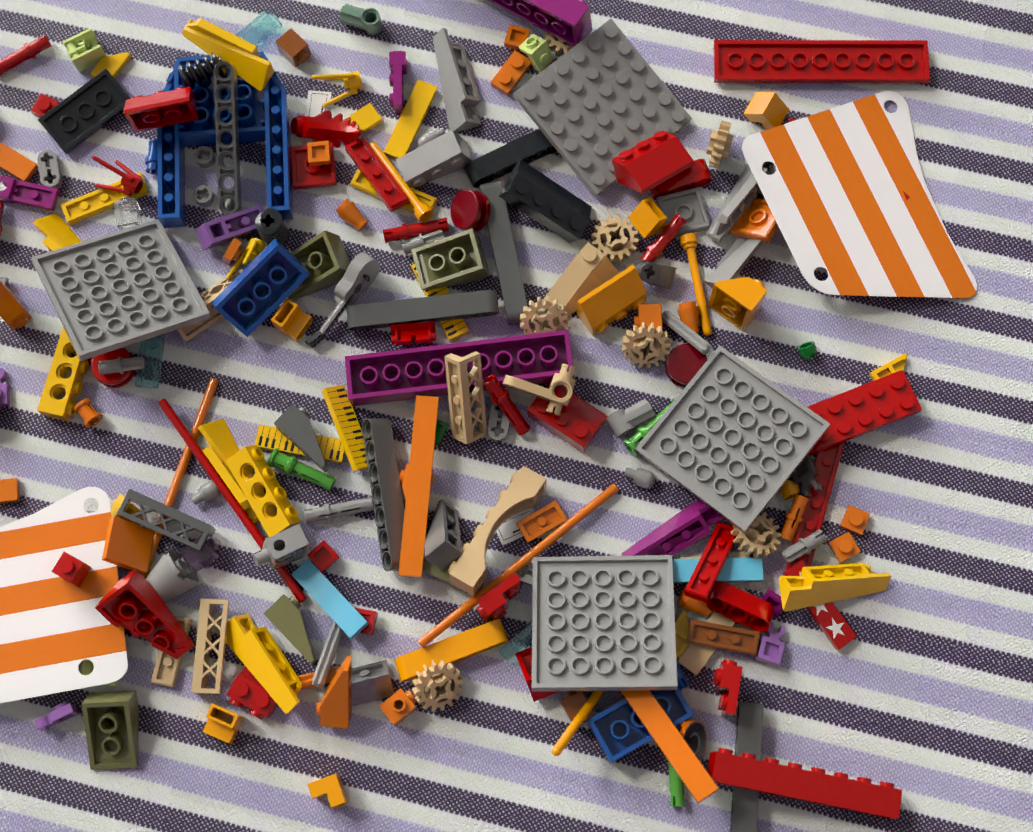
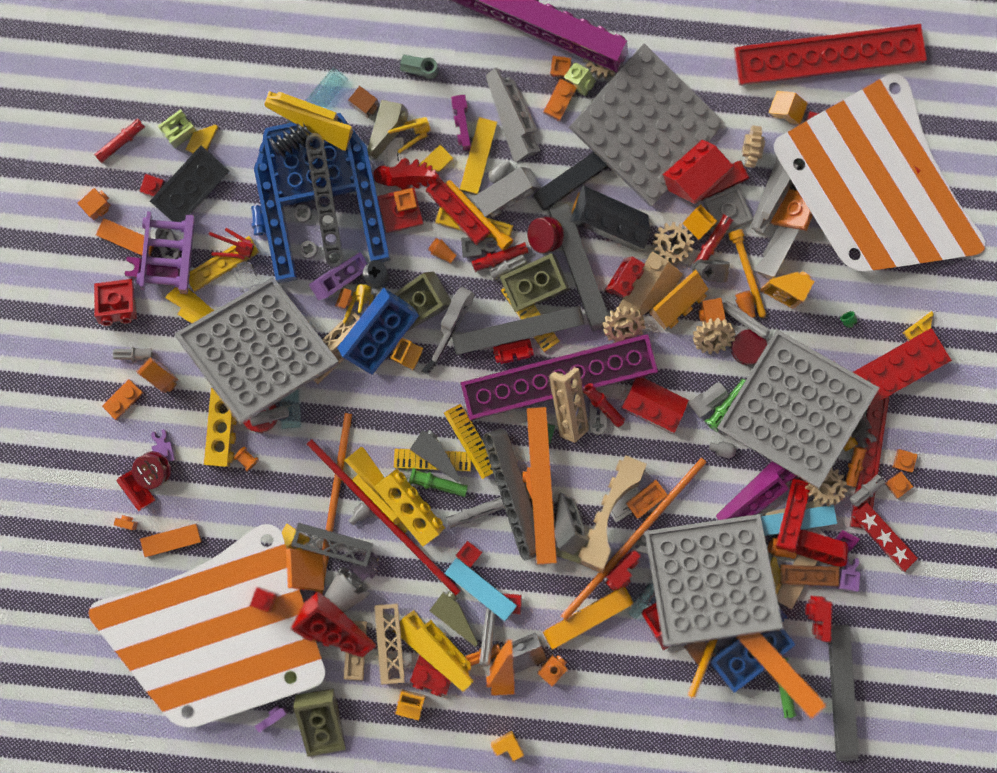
camera: 15 degrees left, 10 degrees up
(60, 190) = (184, 245): none -> medium lavender fence
(161, 109) = (261, 180): red slope -> none
(282, 548) = (439, 551): light grey torso -> none
(318, 62) = (389, 116): none -> slope
(385, 218) = (469, 249): none -> dark grey plate
(437, 682) = (582, 649): tan gear -> none
(549, 271) = (625, 276): none -> red plate
(559, 379) = (646, 400): tan piece -> none
(695, 736) = (797, 660): black tile -> none
(804, 785) = (890, 687): red brick -> none
(830, 584) = (892, 519): yellow wedge -> none

